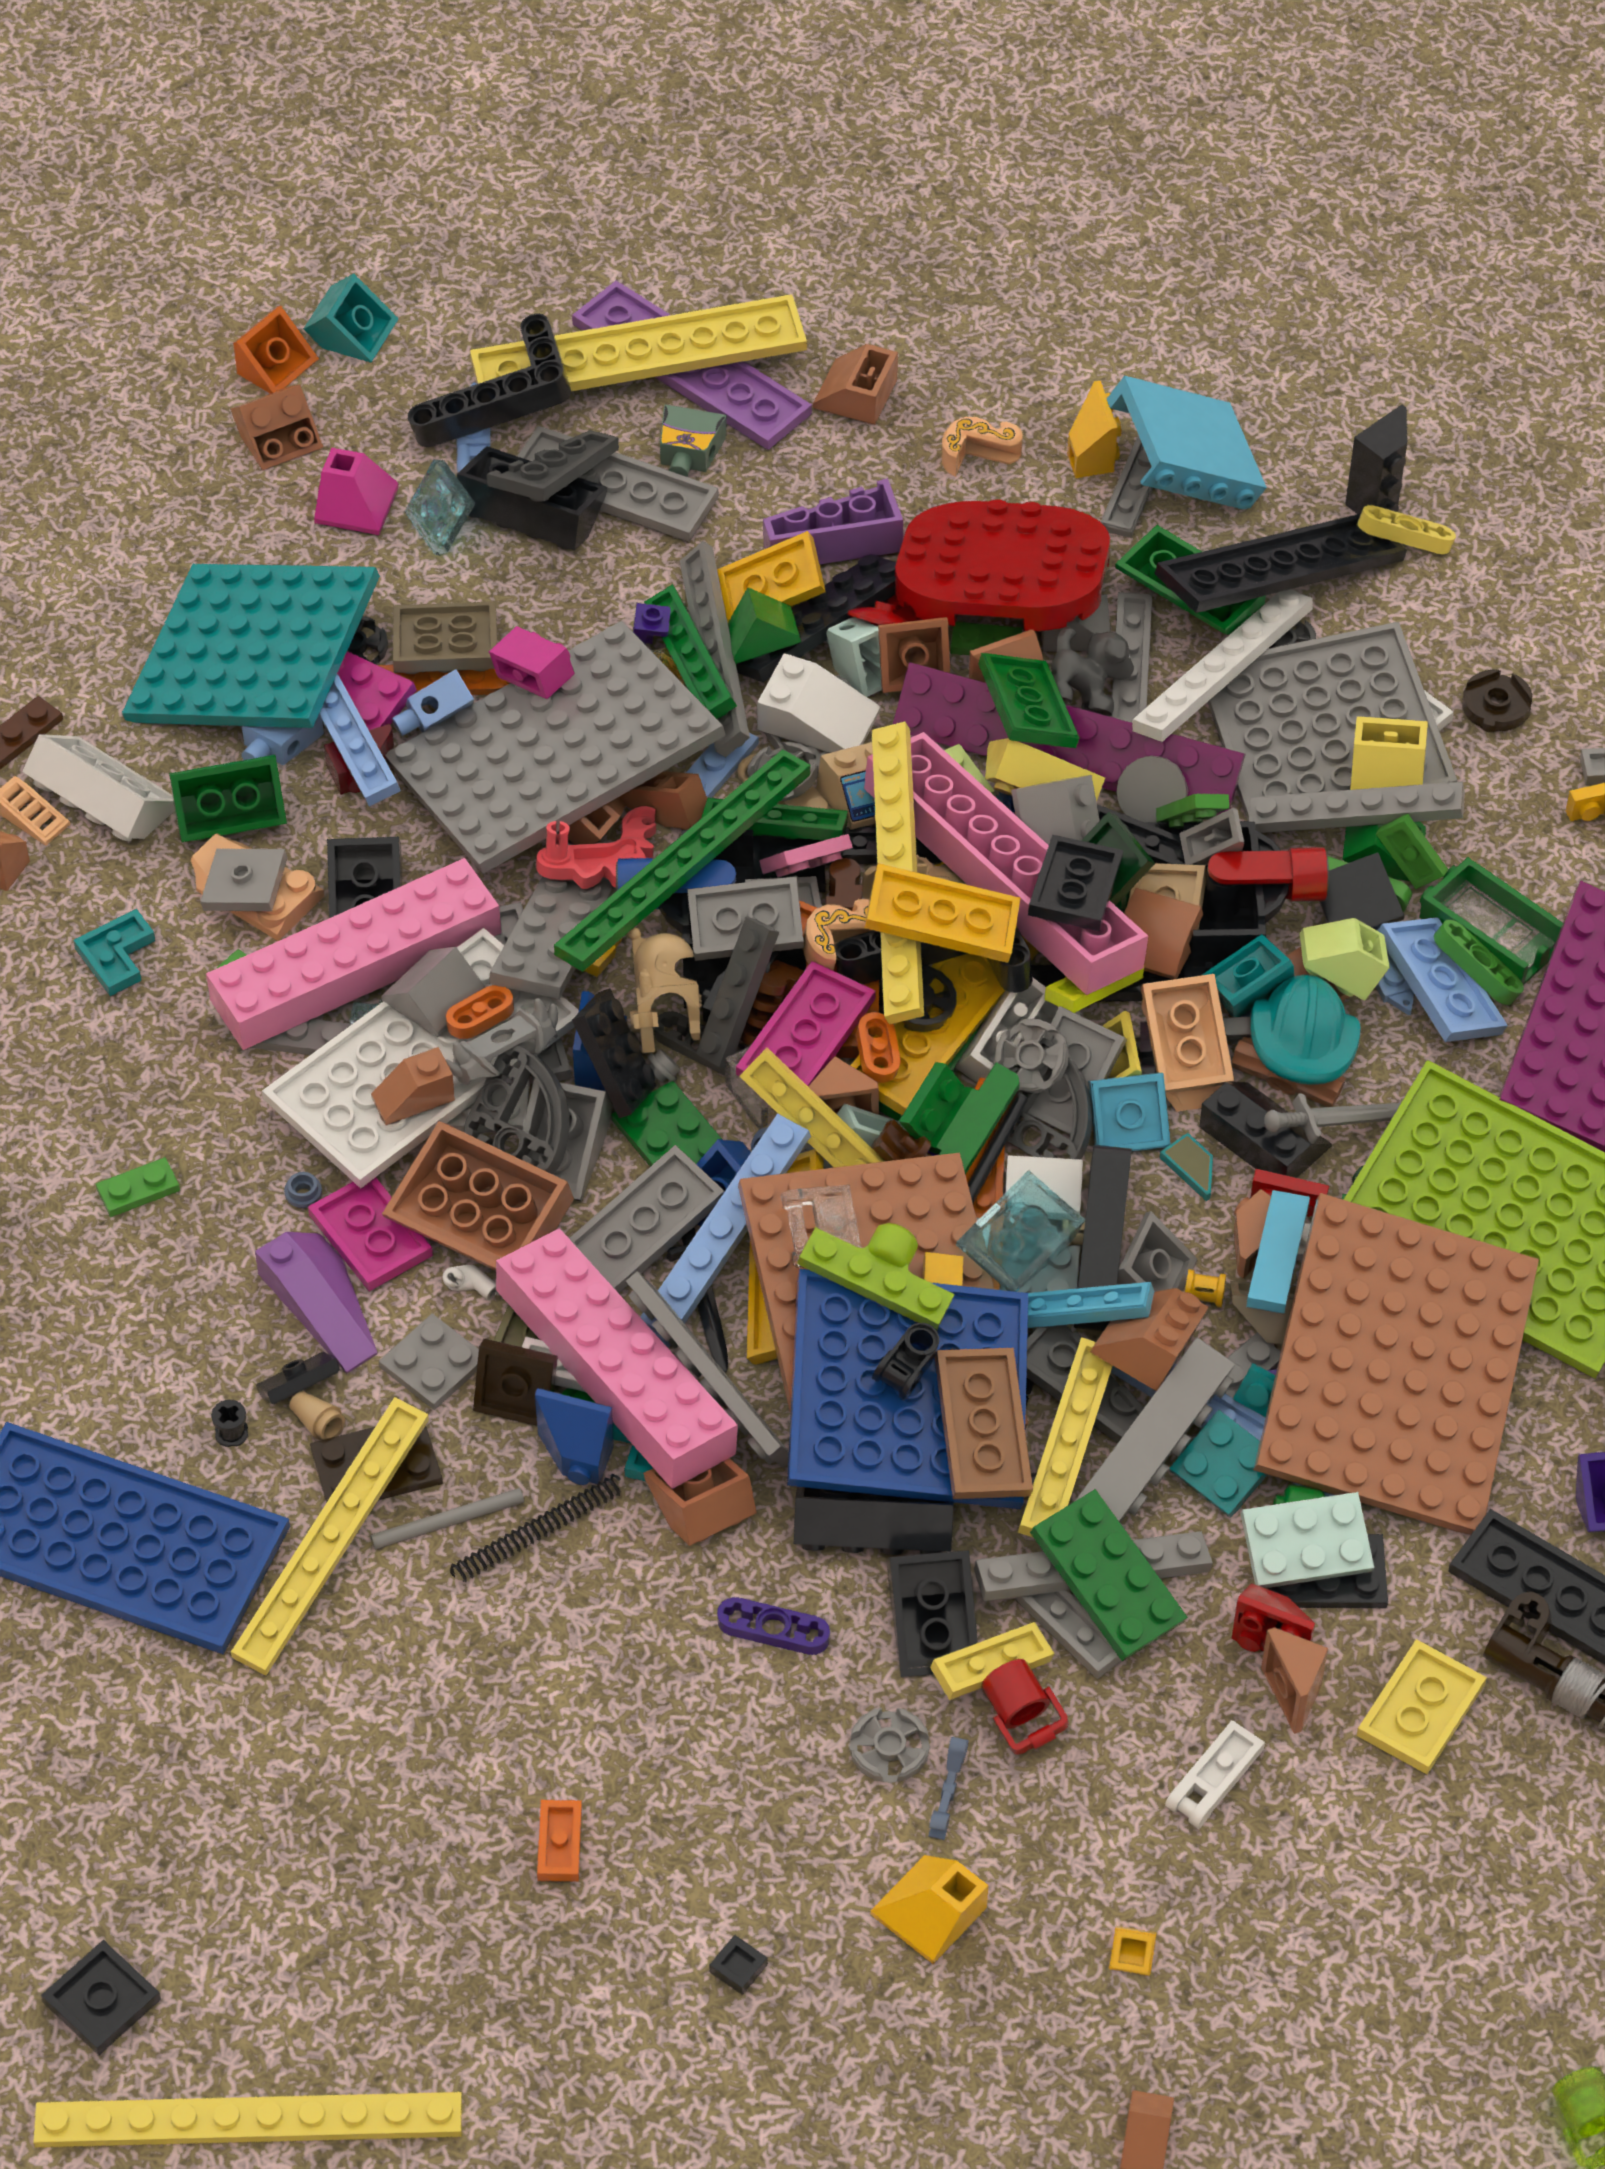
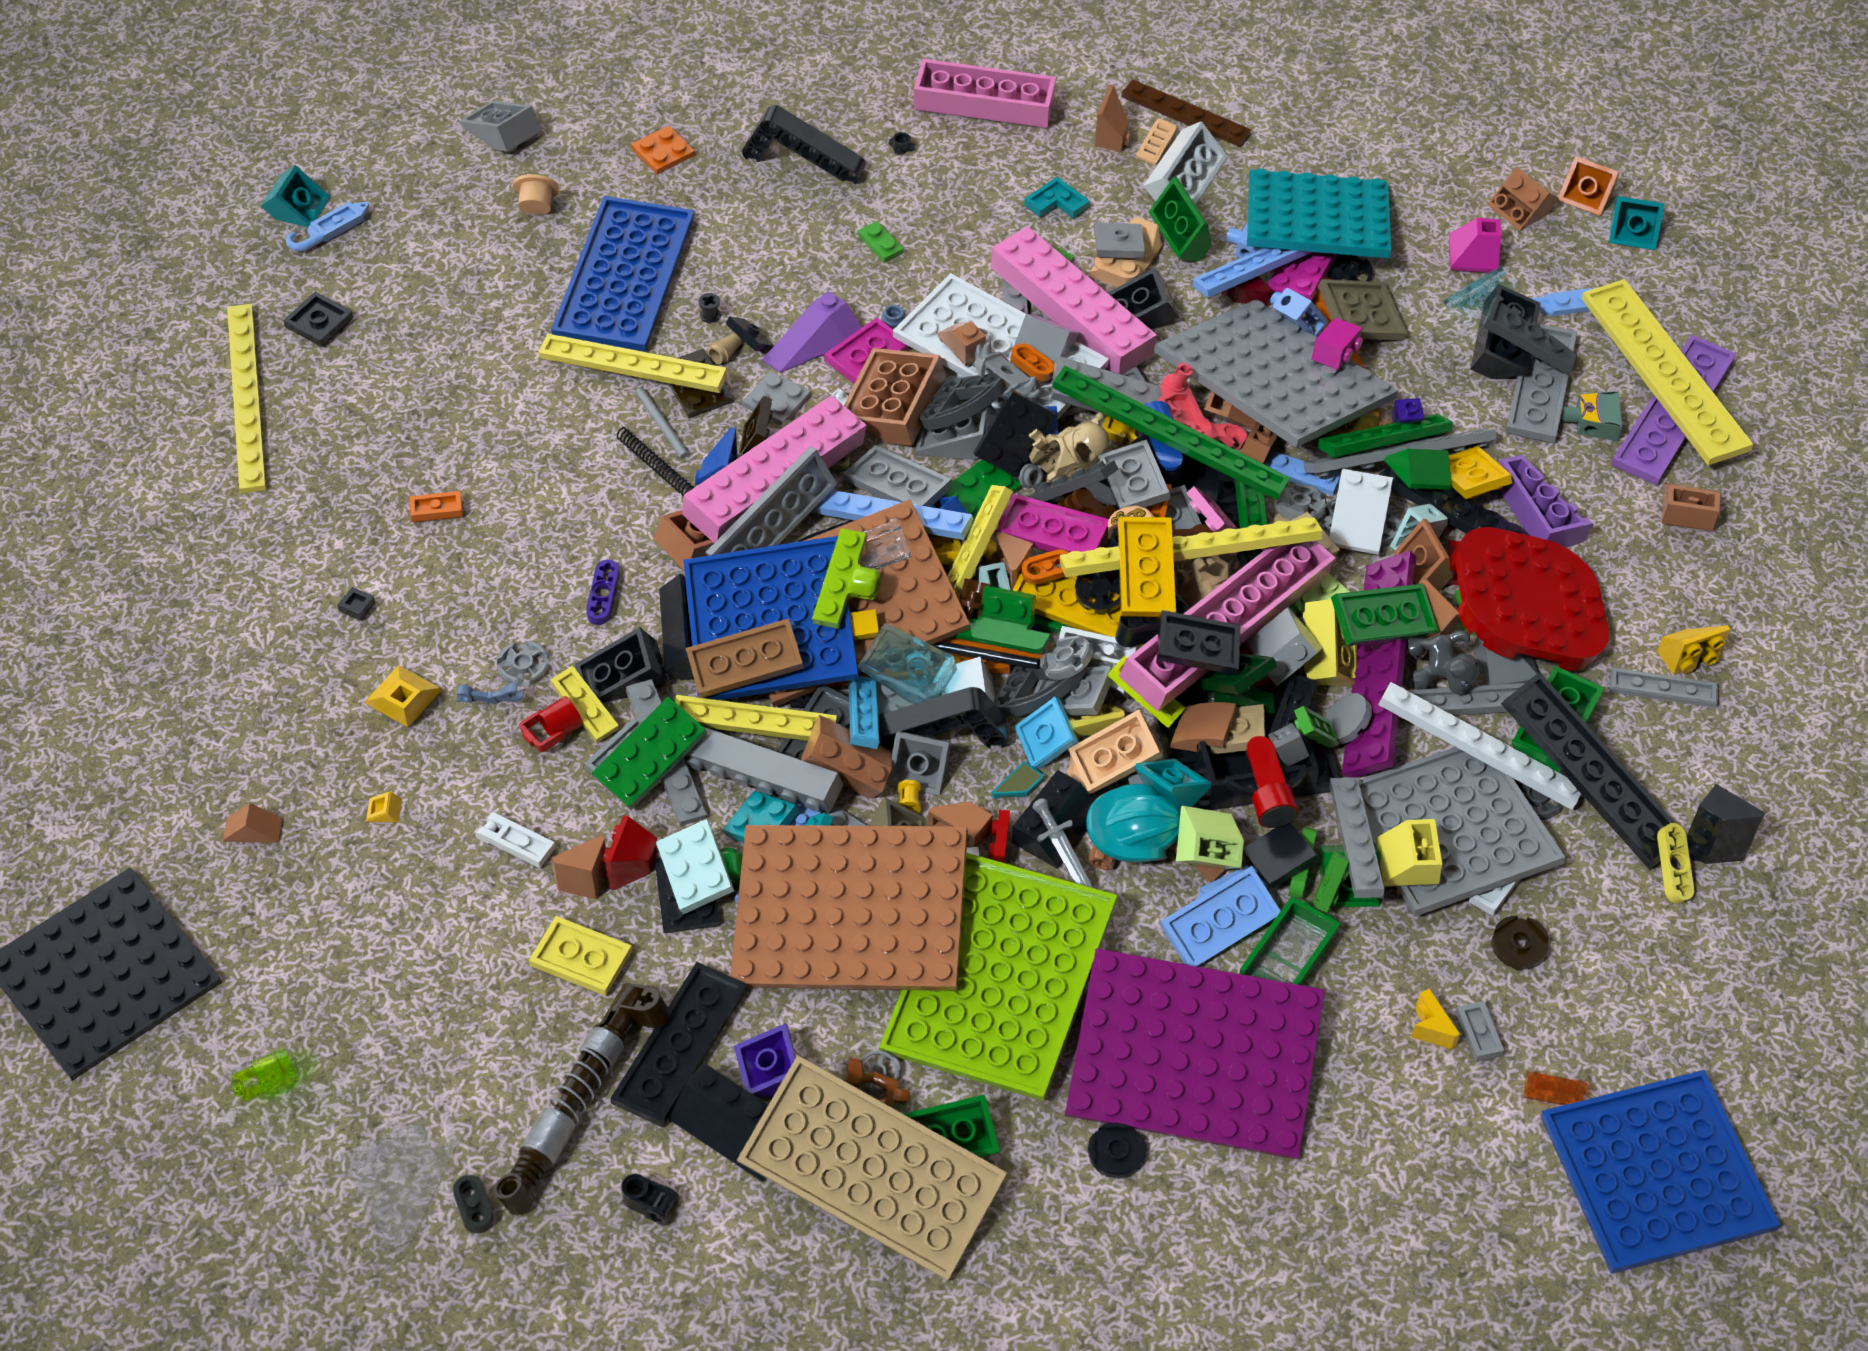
camera: 80 degrees right, 0 degrees up
(501, 398) = (1588, 305): black beam -> none
(880, 614) = (1447, 530): red dish -> none
(906, 1365) = (774, 603): black piece -> none
(982, 440) = (1667, 578): light nougat animal -> none
(1190, 443) = (1696, 698): medium azure panel -> none
(1278, 1252) = (901, 814): medium azure tile -> none
(1478, 962) = (1248, 921): bright green beam -> none

